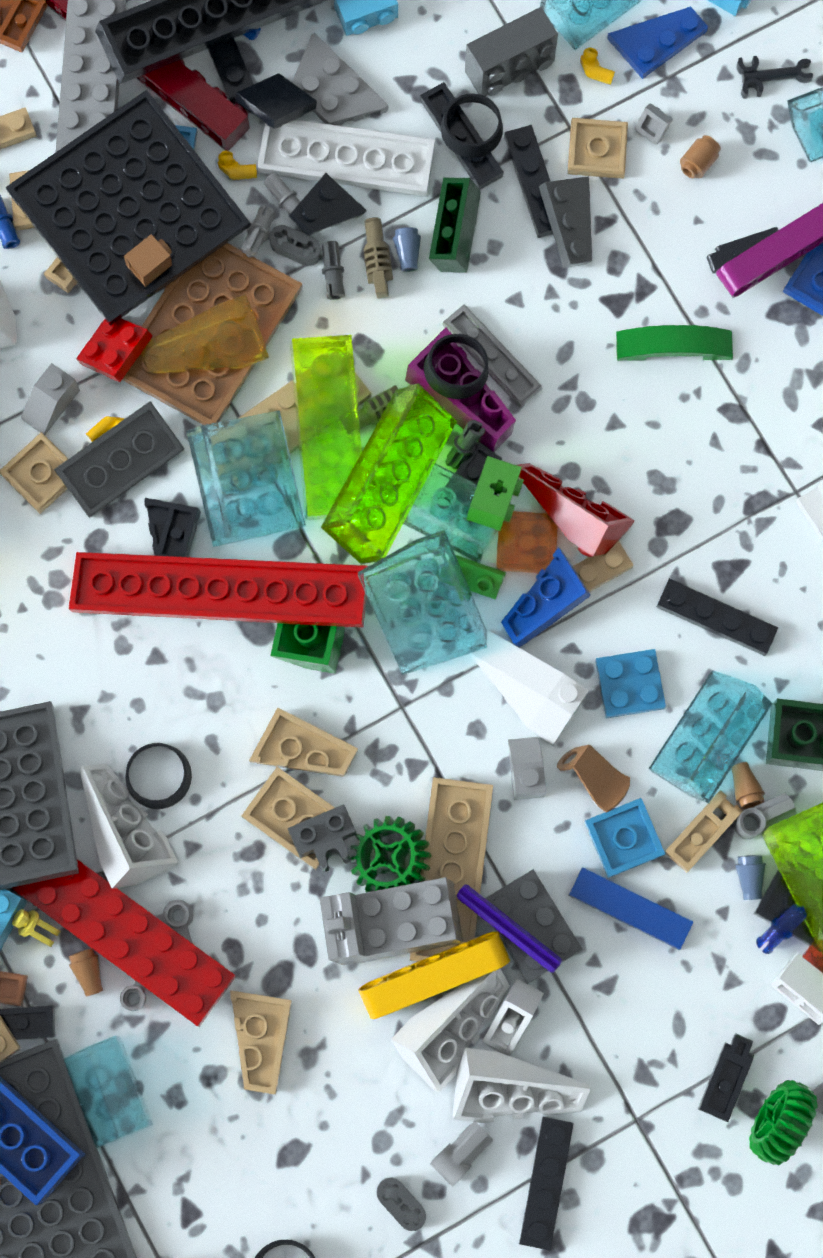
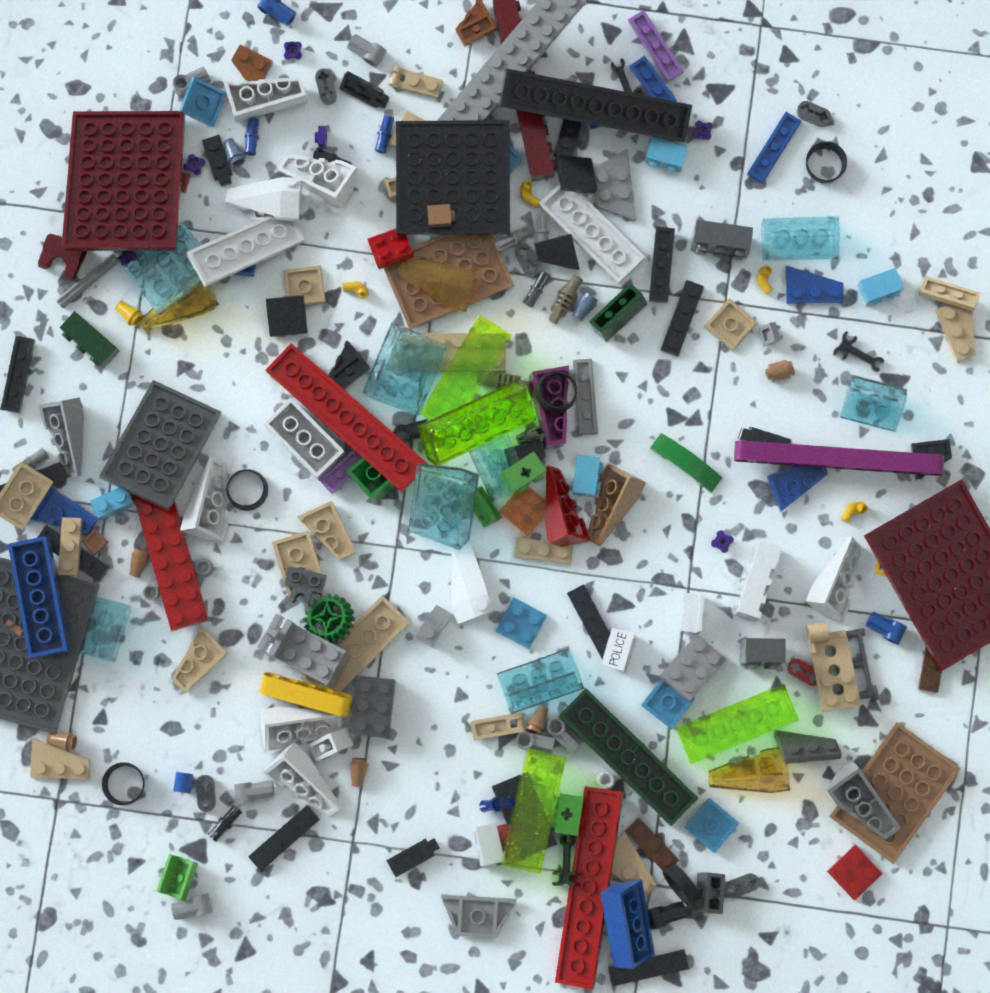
camera: 40 degrees right, 5 degrees up
(26, 923) = (127, 515): light yellow arm -> none
(45, 522) = (286, 315): none -> black tile
(49, 398) = (337, 250): light grey slope -> none
(119, 459) = (349, 310): dark grey tile -> none
(184, 655) = (304, 439): none -> white brick
(261, 667) = (338, 474): none -> medium lavender plate
(314, 546) = (411, 430): none -> black piece
(365, 1211) = (184, 782): none -> blue piece
(456, 1223) = (225, 823): none -> black pin
(467, 149) = (668, 282): black tyre -> none
(509, 928) = (358, 699): dark purple axle -> none
(549, 599) = (509, 549): blue wing -> none
(569, 445) = (586, 475): none -> medium azure brick
(570, 218) = (683, 352): dark grey wing -> none
(574, 1022) = (358, 771): none -> medium nougat cone
(599, 777) = (465, 658): medium nougat piece -> none
(624, 838) = (455, 699): dark azure plate -> none
(625, 447) = (616, 497): none -> medium nougat wedge
(631, 908) = (431, 736): blue tile -> none
(751, 876) = (504, 766): sand blue cone -> none
(776, 624) = (619, 650): none -> white panel
(783, 1122) = (420, 897): green gear -> none
(788, 412) = (717, 542): none -> dark purple plate
(792, 780) = (564, 735): none -> light grey piece

